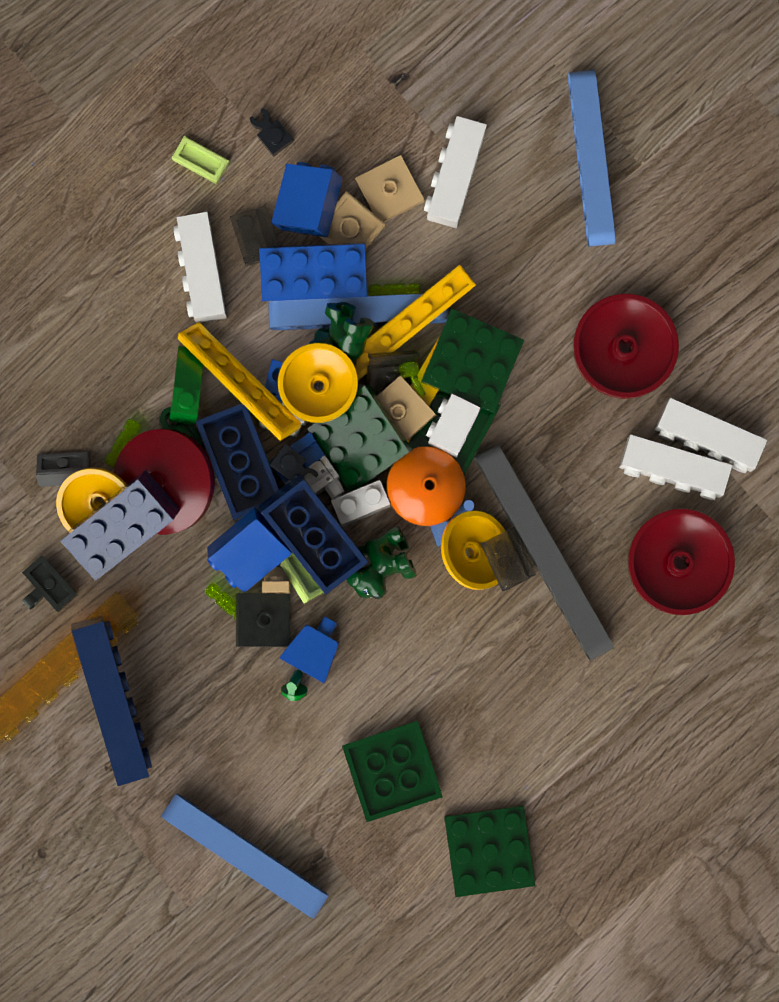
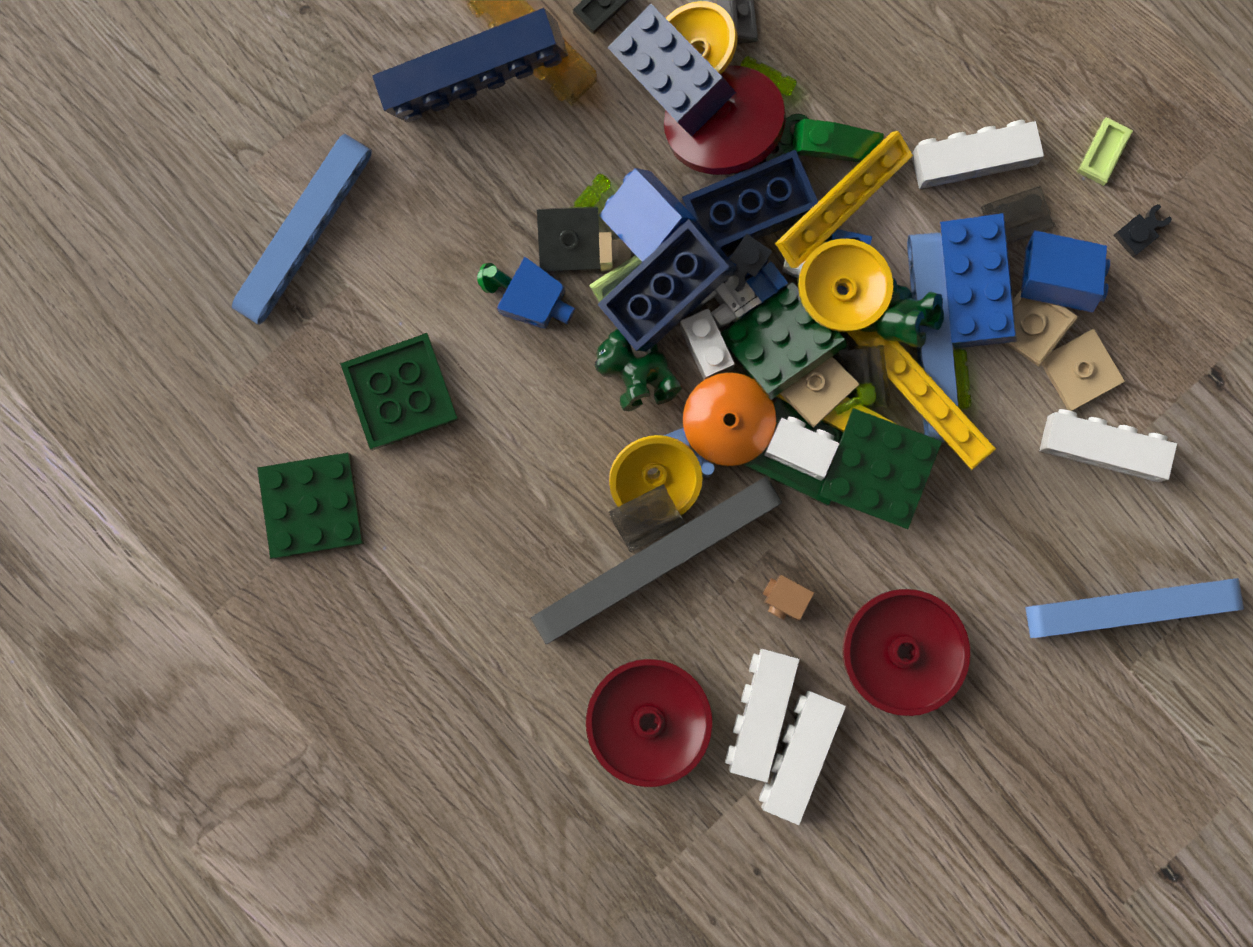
camera: 90 degrees right, 0 degrees up
(578, 443) = (786, 598): none -> medium nougat brick

